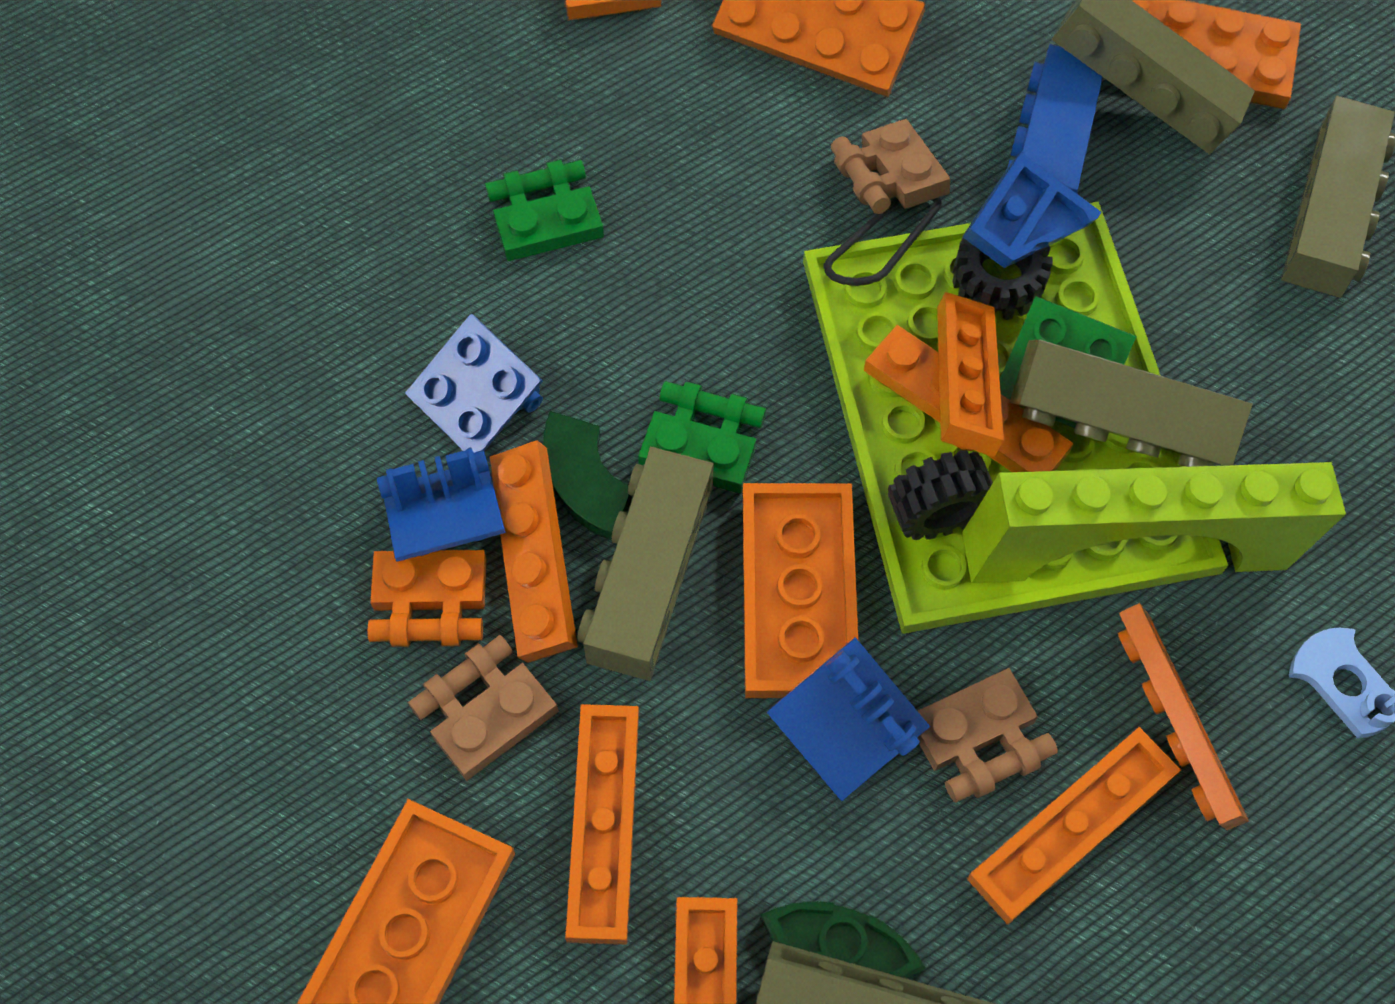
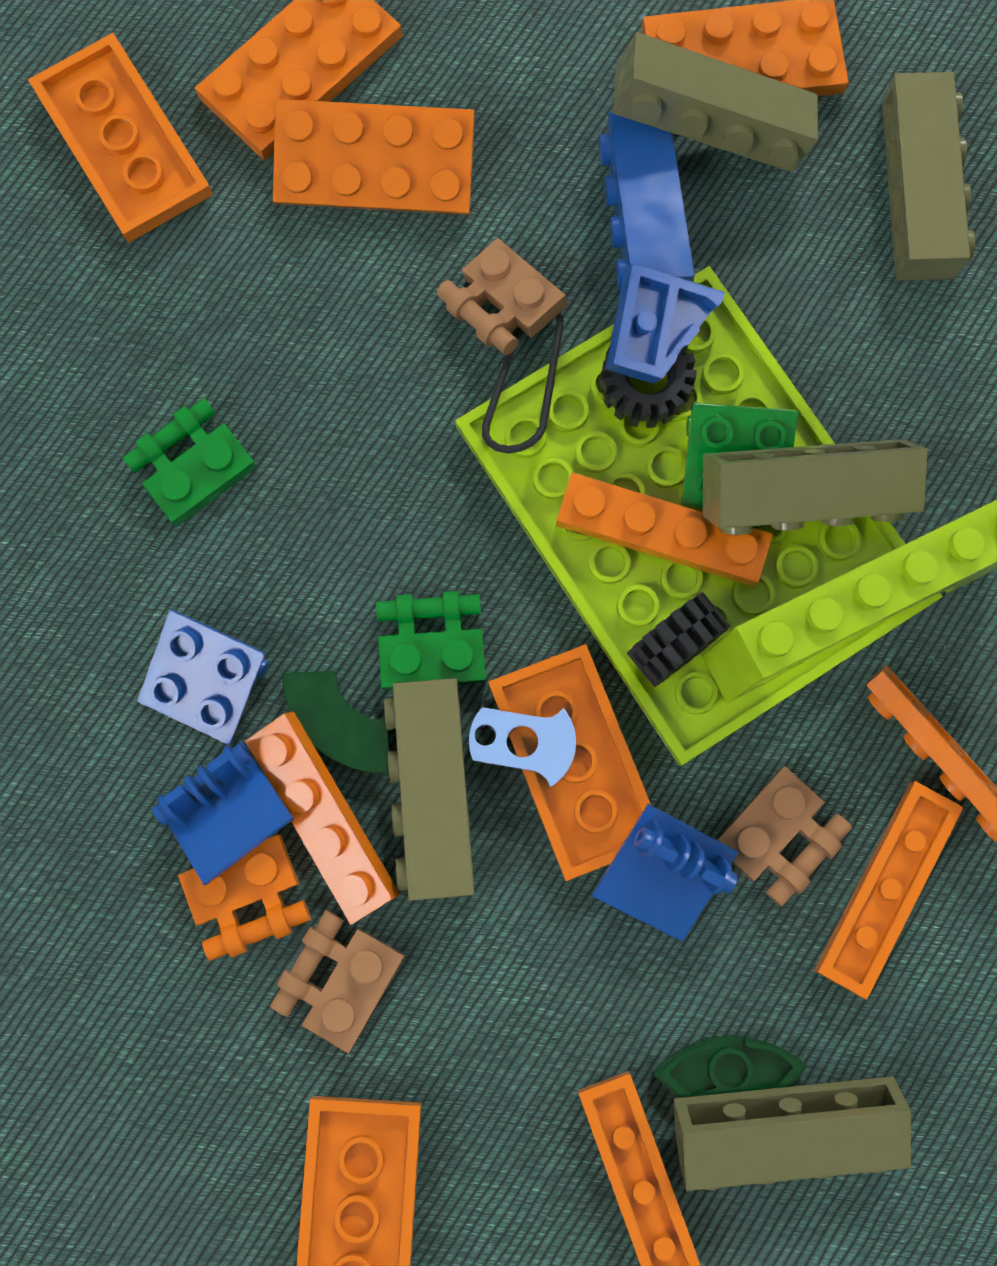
camera: 20 degrees left, 15 degrees up
(603, 825) = (488, 1050): orange plate -> none
(777, 568) = (554, 748): none -> light blue piece
(969, 375) = (662, 512): orange plate -> none

